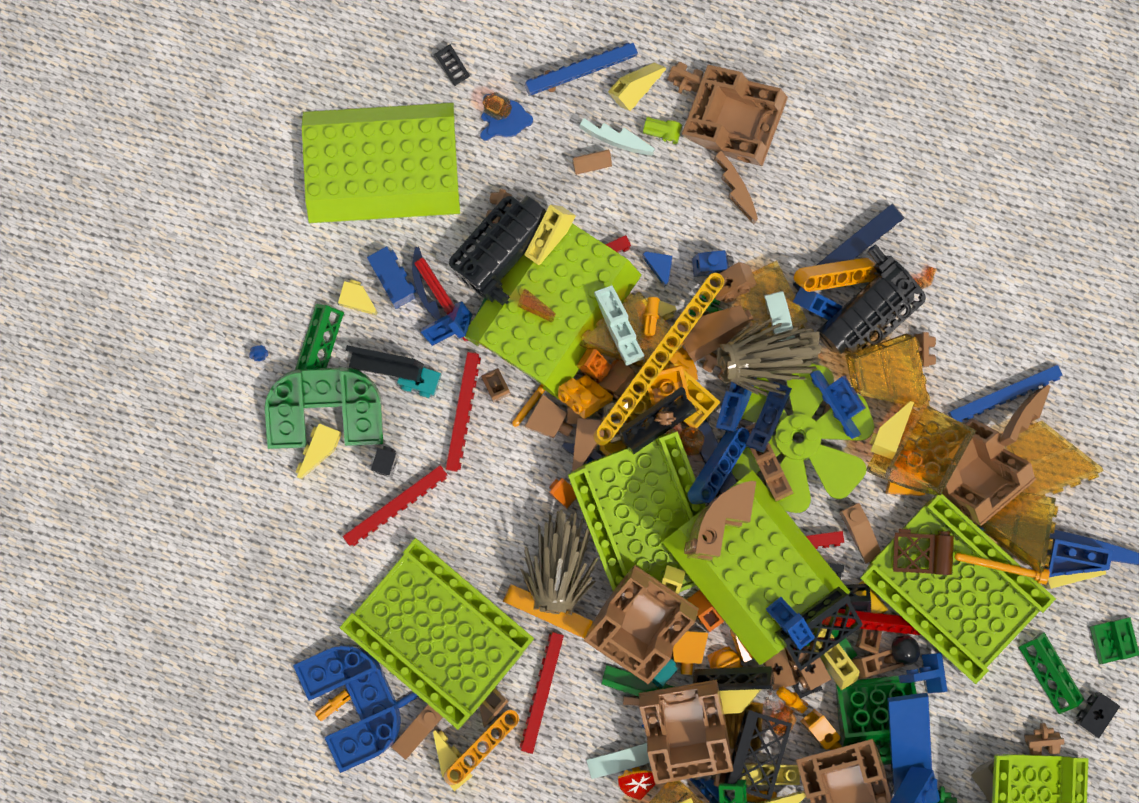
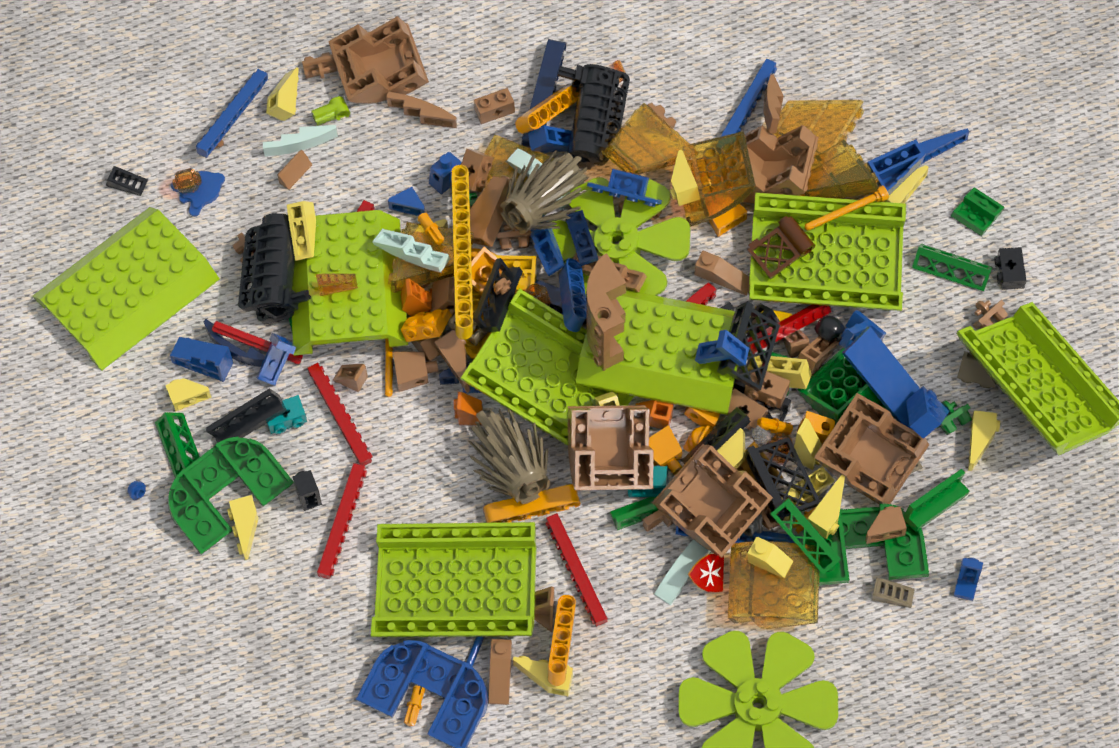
camera: 30 degrees left, 20 degrees down
(798, 231) = (494, 106): none -> medium nougat brick
(801, 741) = (807, 444): none -> light yellow slope

